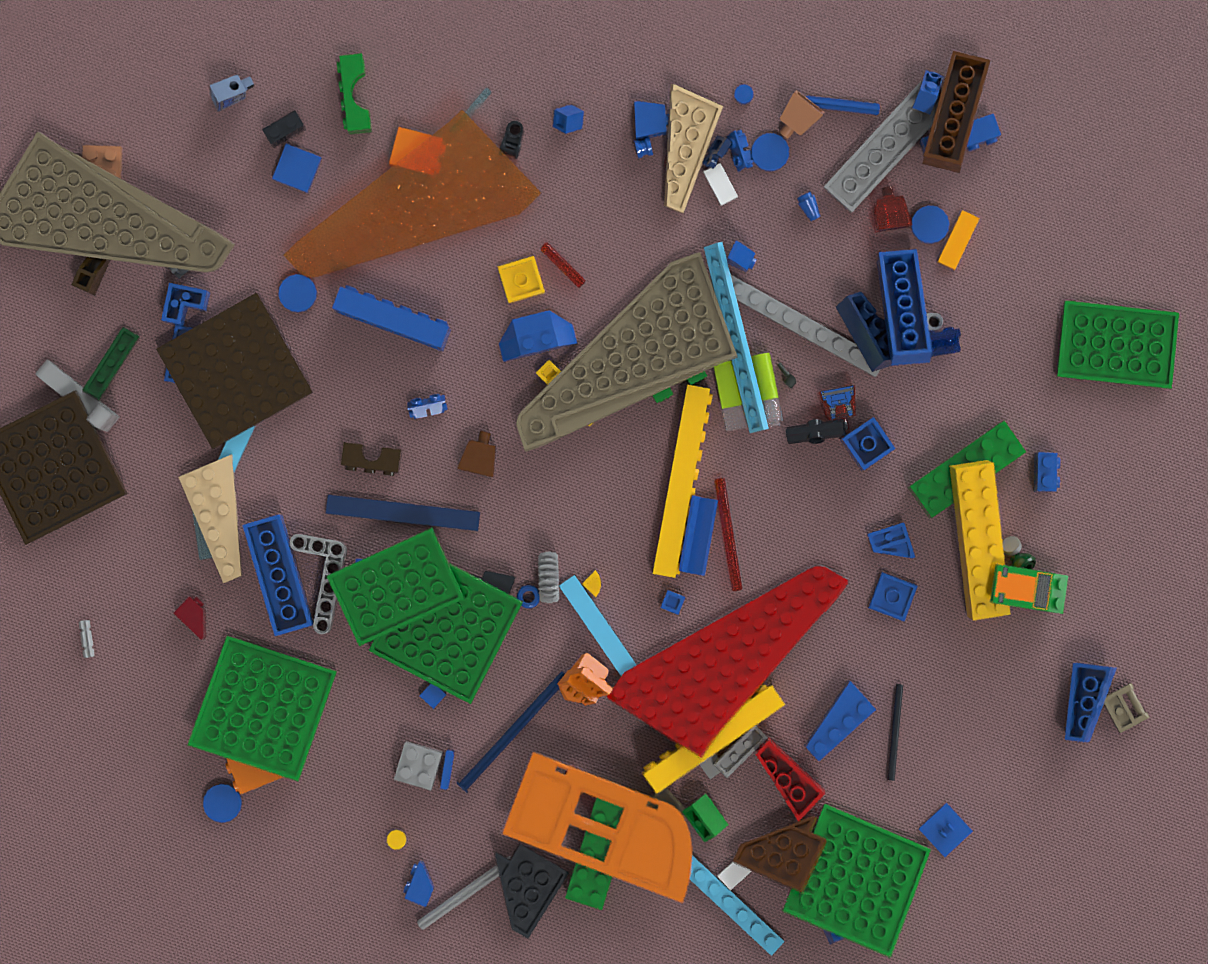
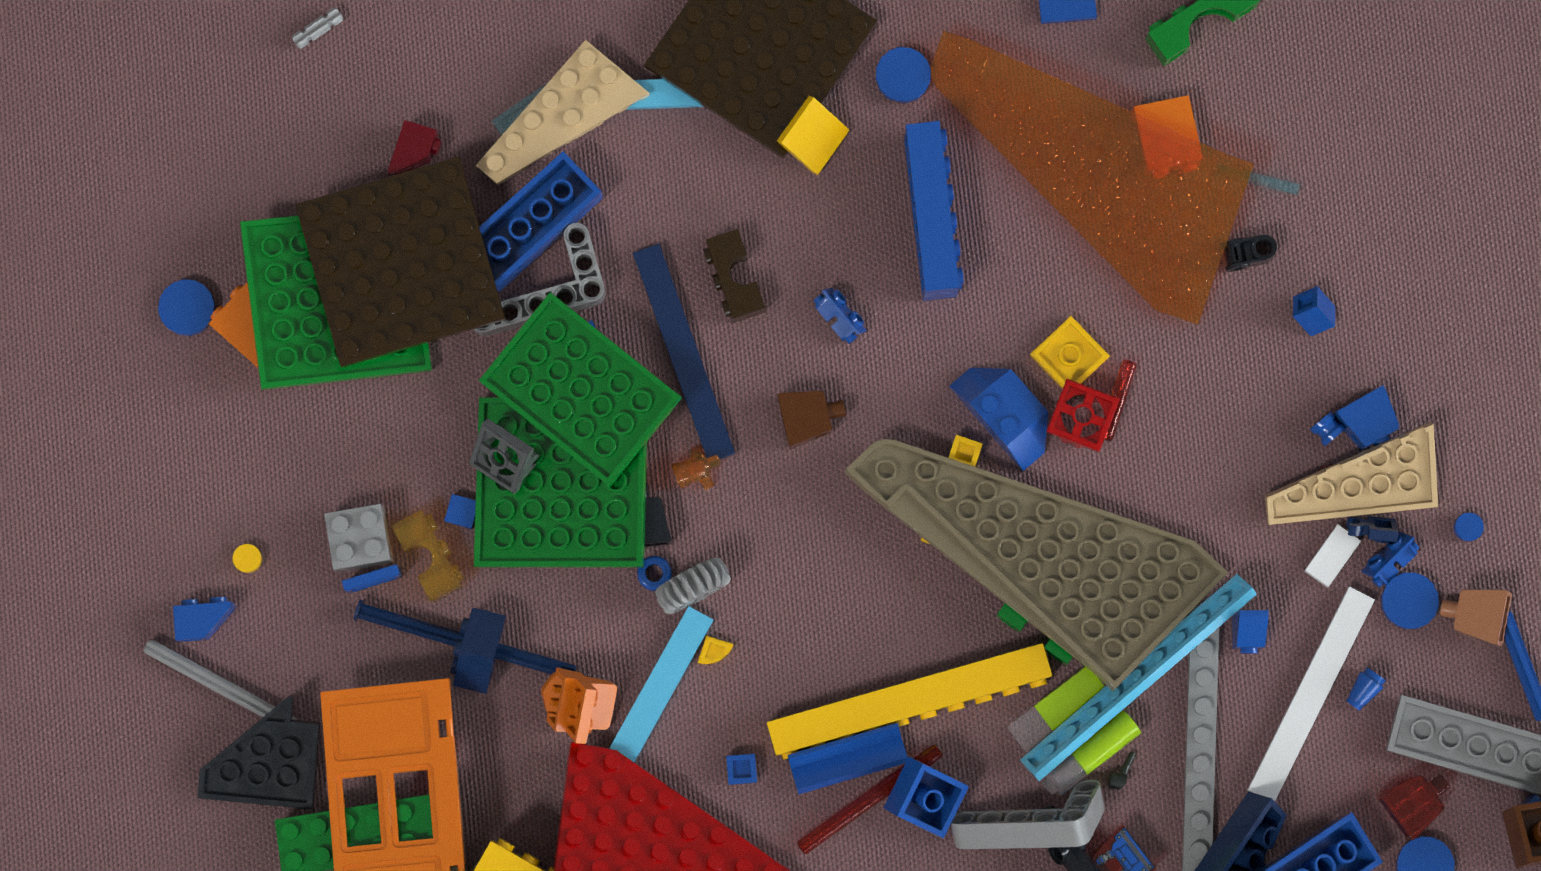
camera: 65 degrees right, 5 degrees down
(261, 658) = (400, 262): none -> dark brown plate
(308, 367) = (813, 135): none -> yellow tile
(418, 663) = (490, 467): none -> dark grey piece
(467, 726) = (441, 577): none -> clear yellow arch
(478, 540) = (695, 469): none -> clear orange piece
(524, 727) = (477, 650): none -> dark blue brick
(562, 271) = (1092, 442): none -> red piece
(744, 500) = (926, 797): none -> blue brick
(795, 445) = (1033, 827): none -> light grey beam
(796, 239) = (1311, 694): none -> white tile

